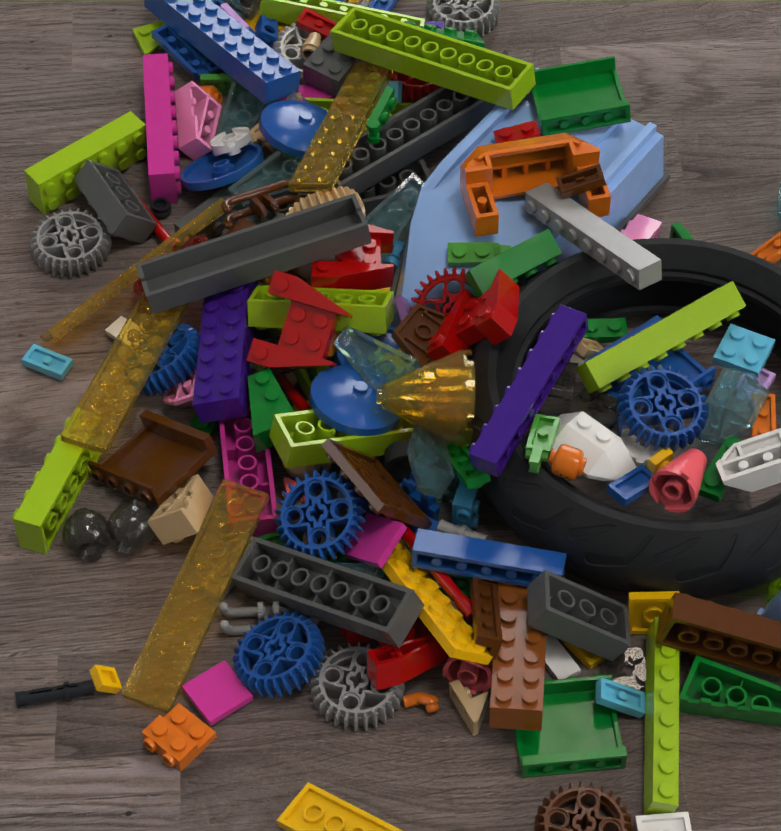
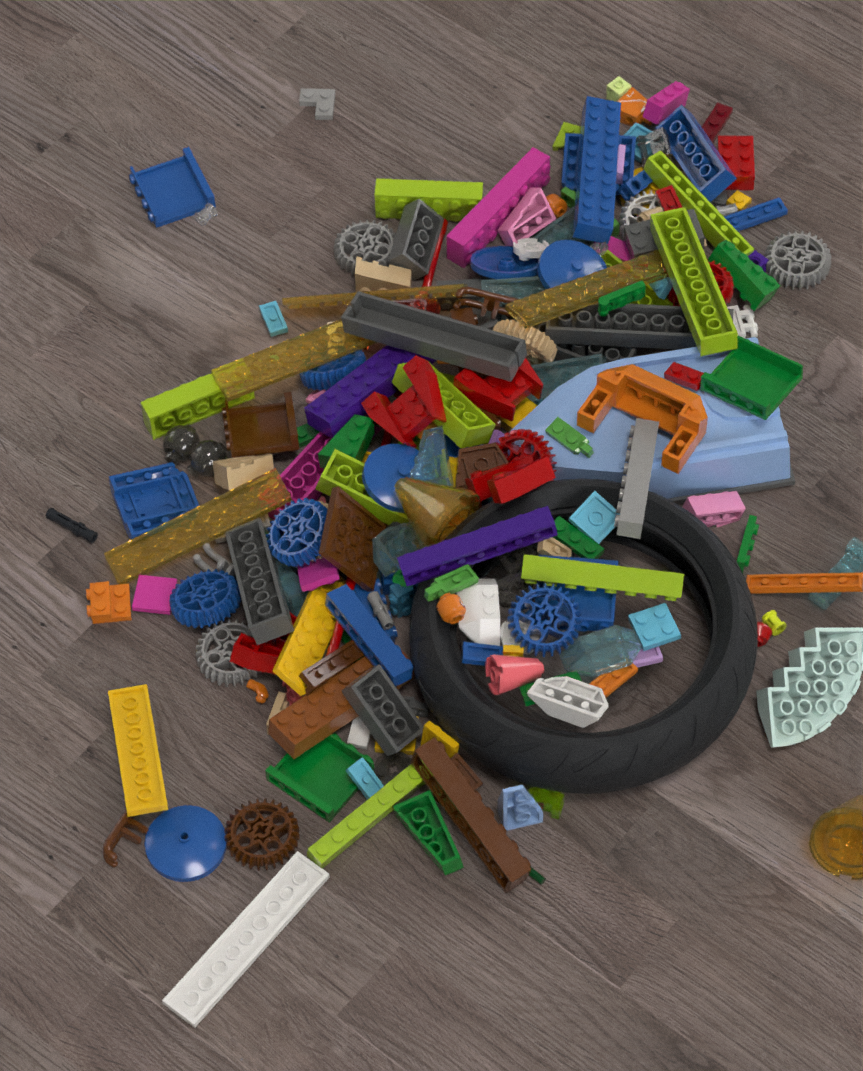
camera: 45 degrees right, 5 degrees up
(105, 679) = (104, 538): yellow plate -> none
(113, 607) = (151, 497): none -> blue wedge
(114, 257) = (378, 277): none -> tan wedge
(160, 207) = (446, 264): black plate -> none
(517, 262) = (577, 461): green wedge -> none
(581, 183) = (668, 438): reddish brown tile -> none
(591, 295) = (595, 518): none -> medium azure plate

